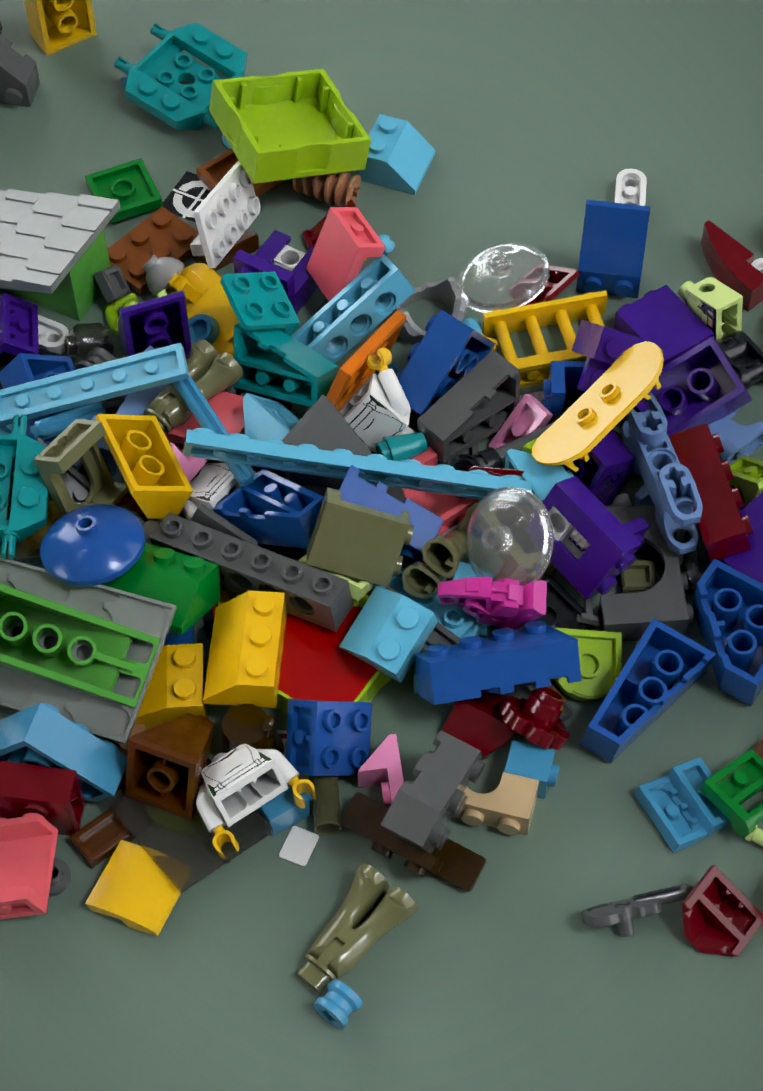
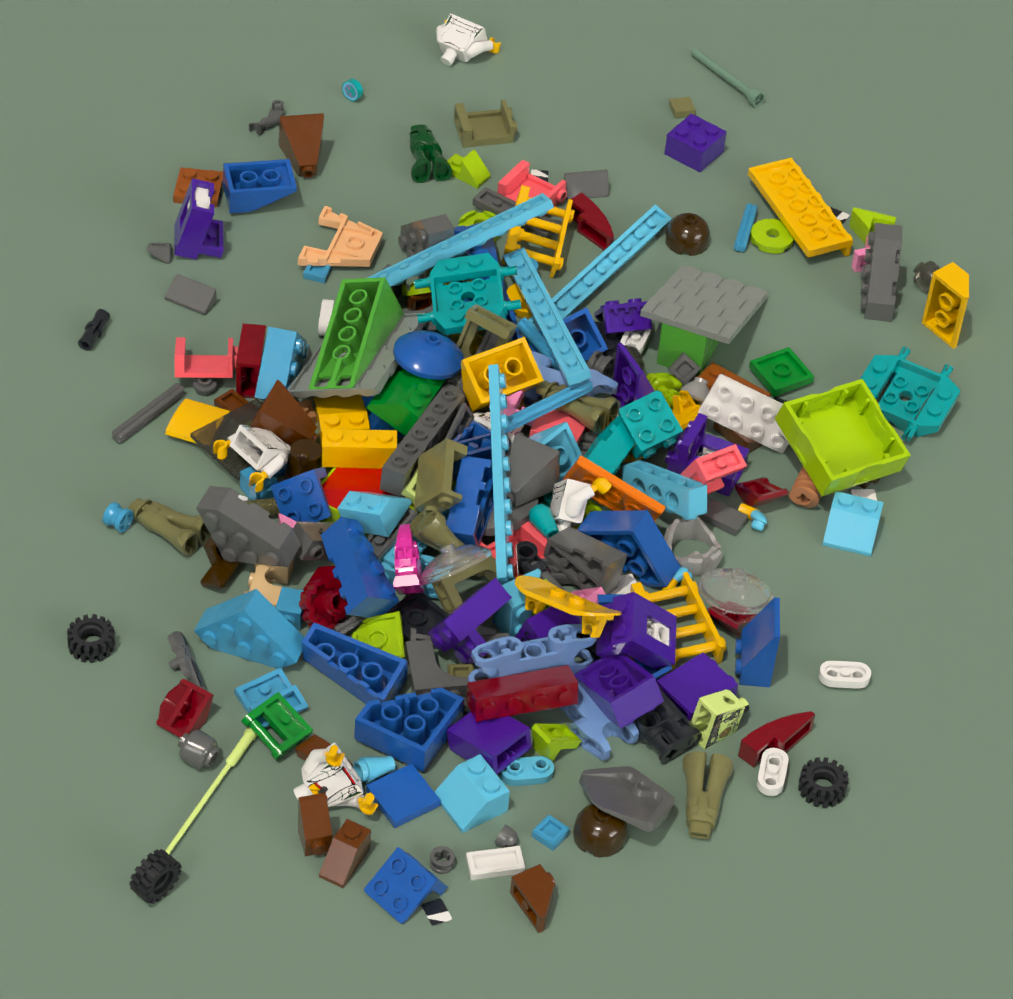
camera: 80 degrees right, 10 degrees down
(106, 962) = (148, 413): none -> dark grey axle
(413, 721) = (310, 539): none -> dark grey brick
(578, 1067) = (88, 627): none -> black tyre
(587, 820) = (251, 630): none -> dark azure brick

